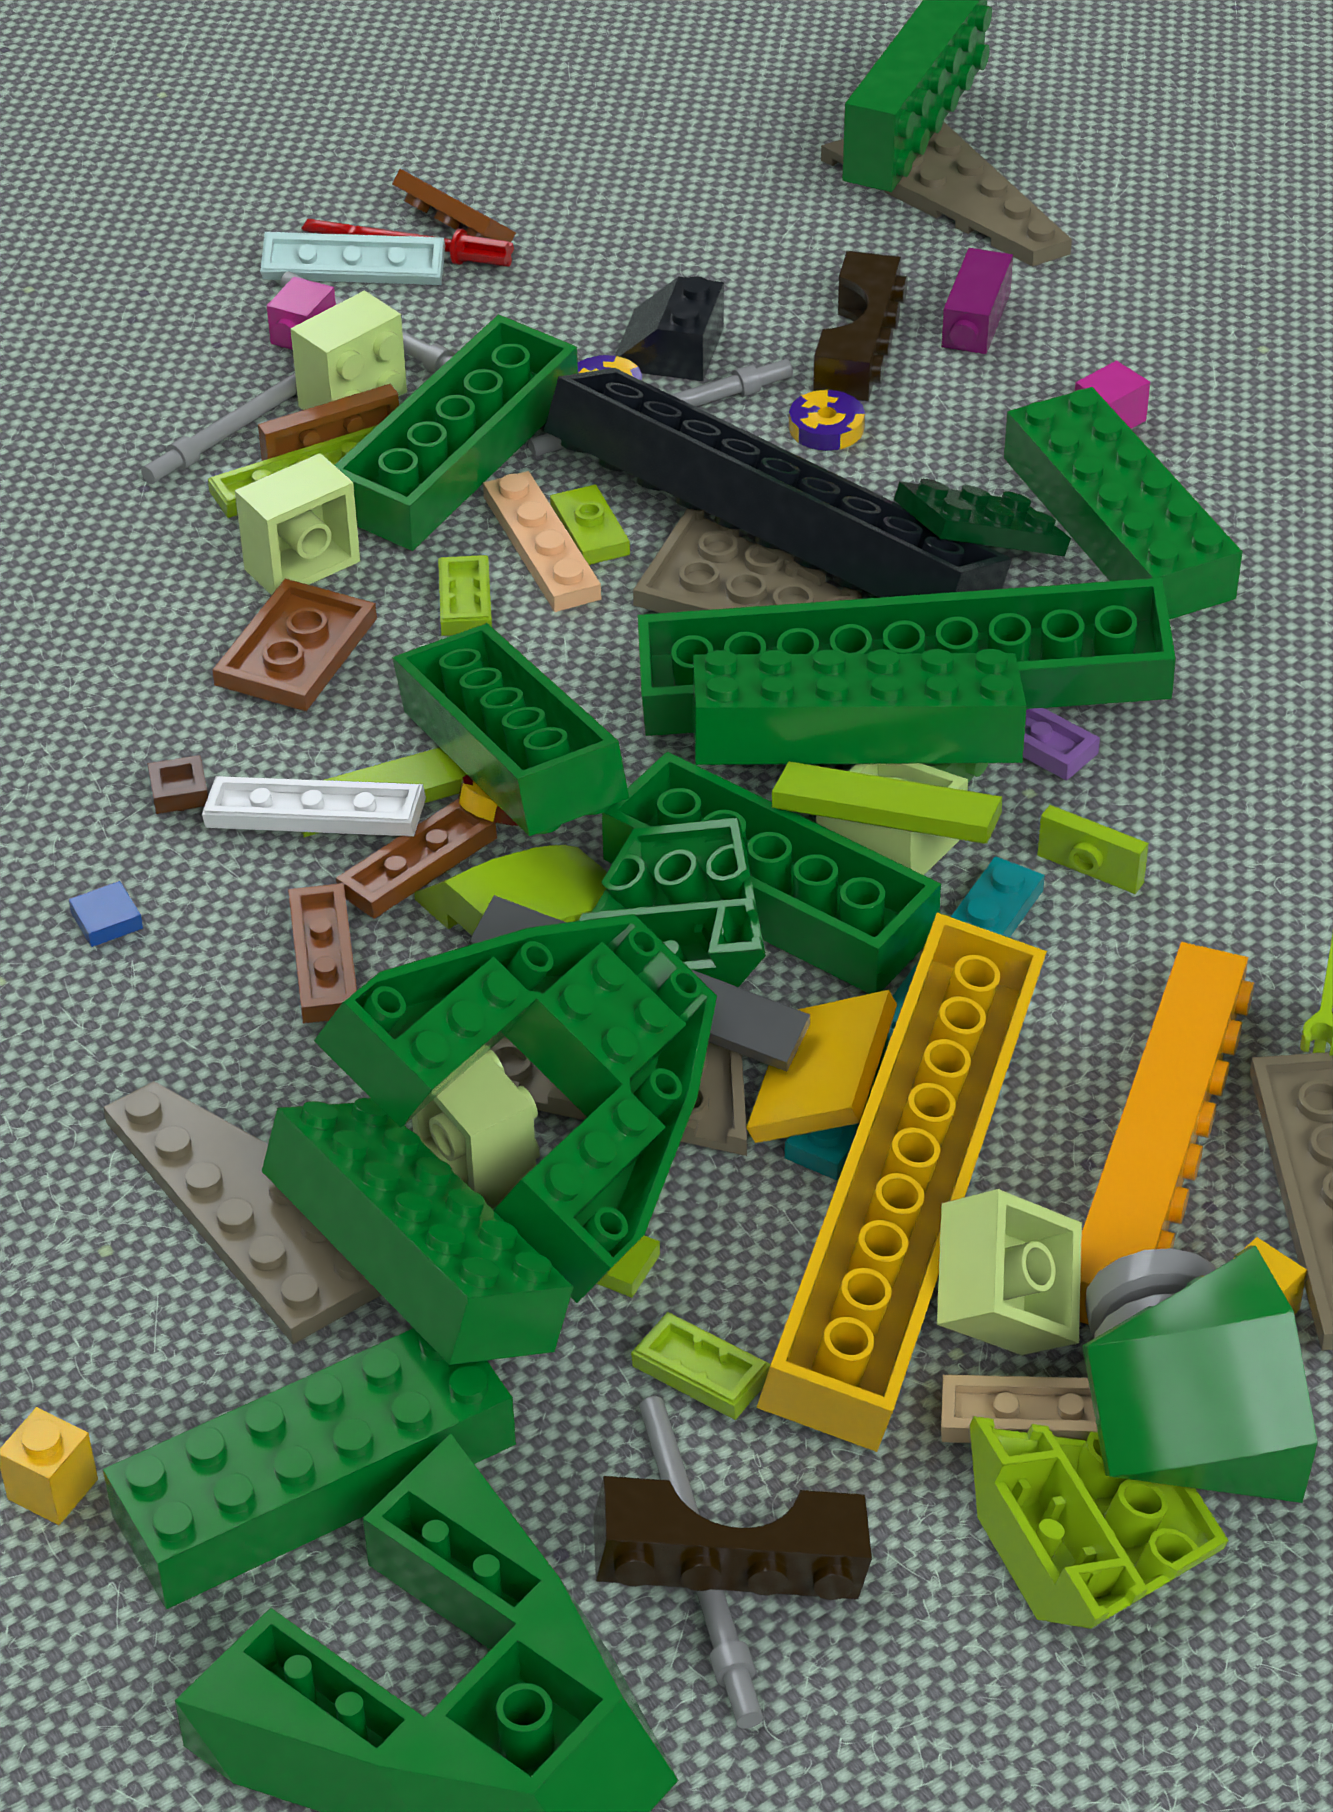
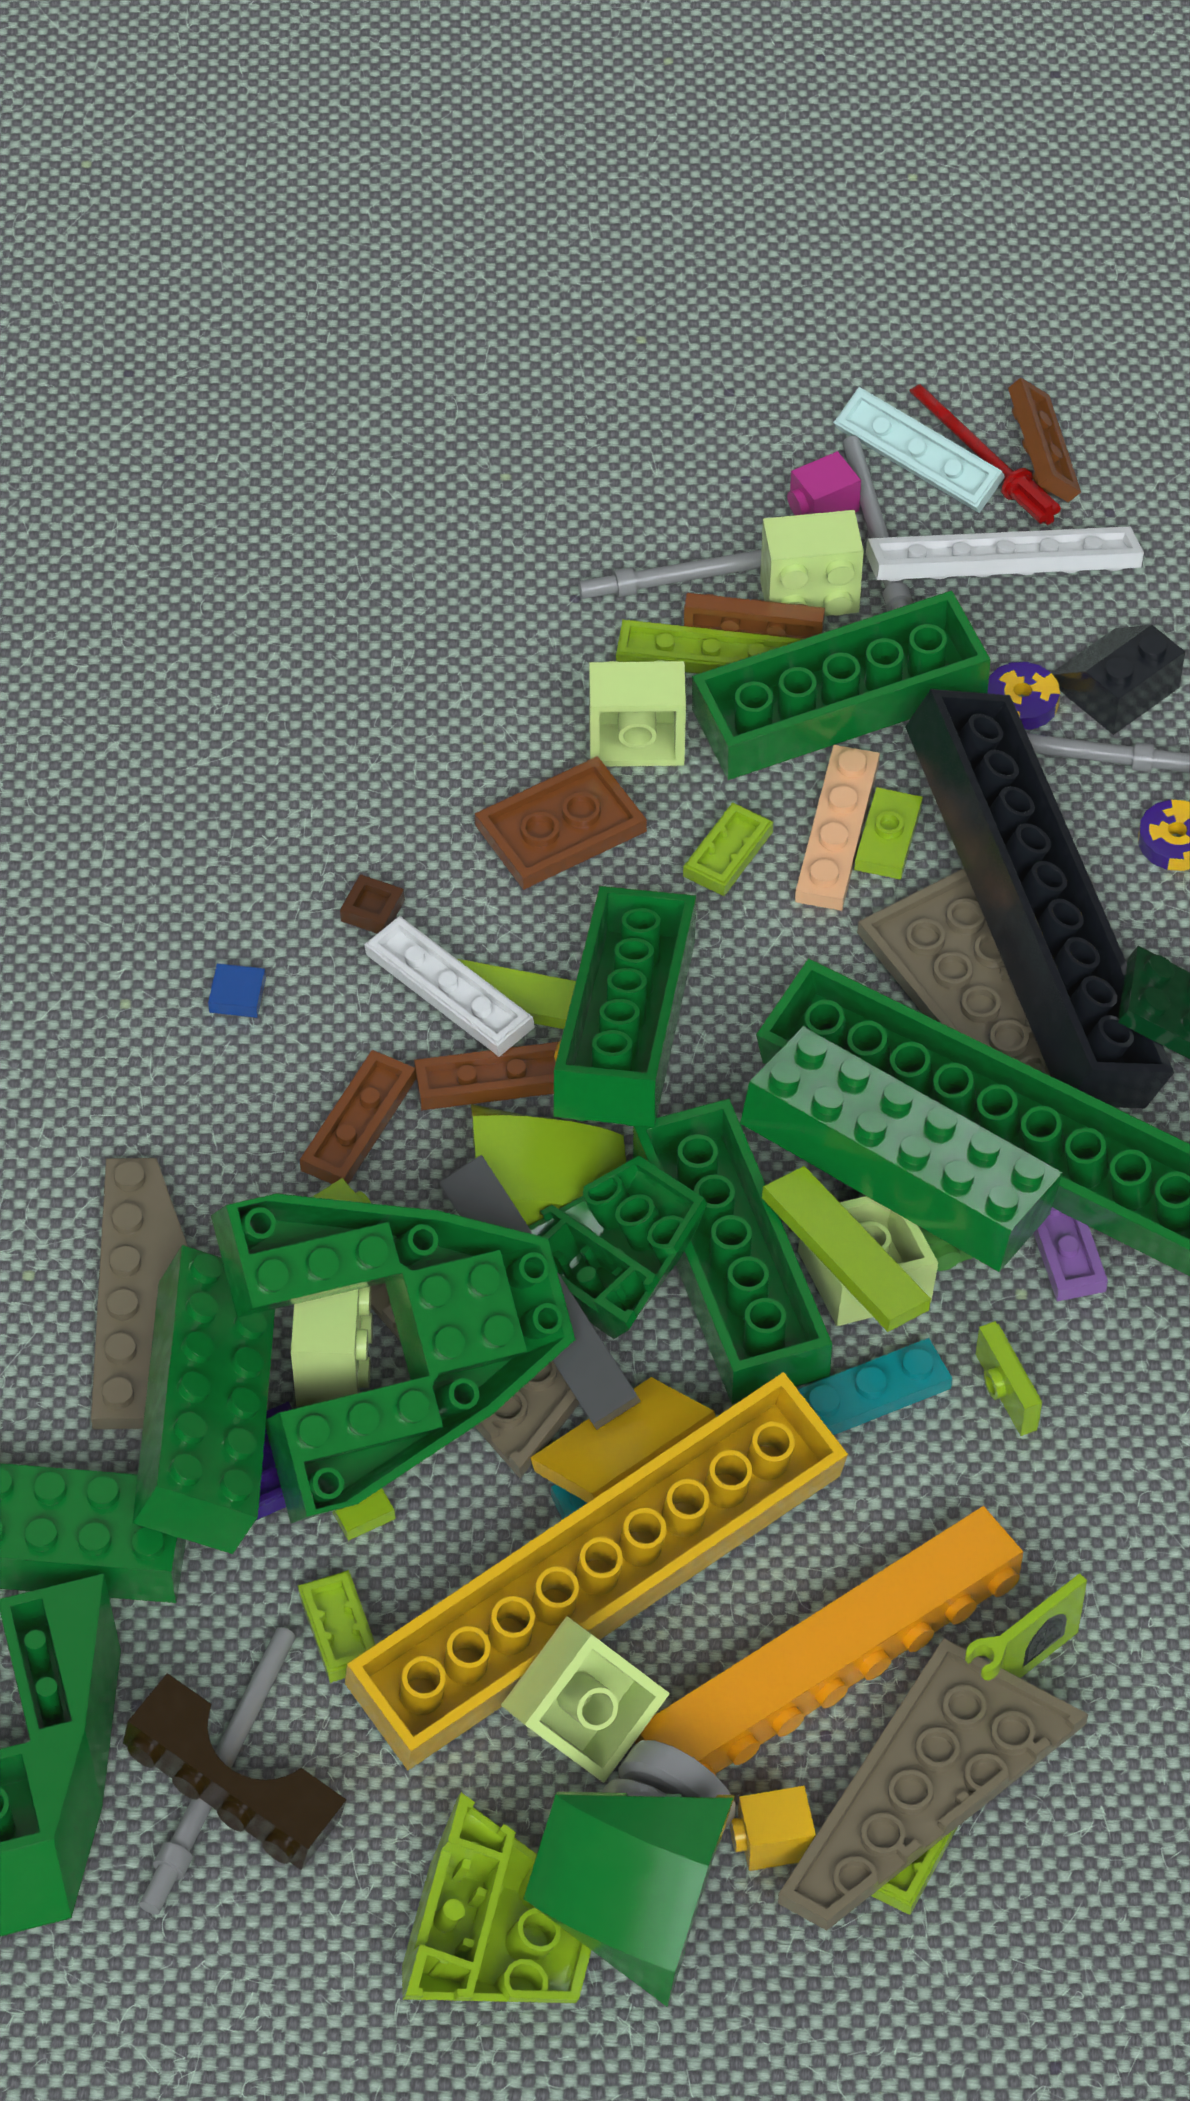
camera: 35 degrees right, 10 degrees up
(504, 287) = (1004, 553): none -> white plate
(1015, 1404) = (509, 1795): tan plate -> none

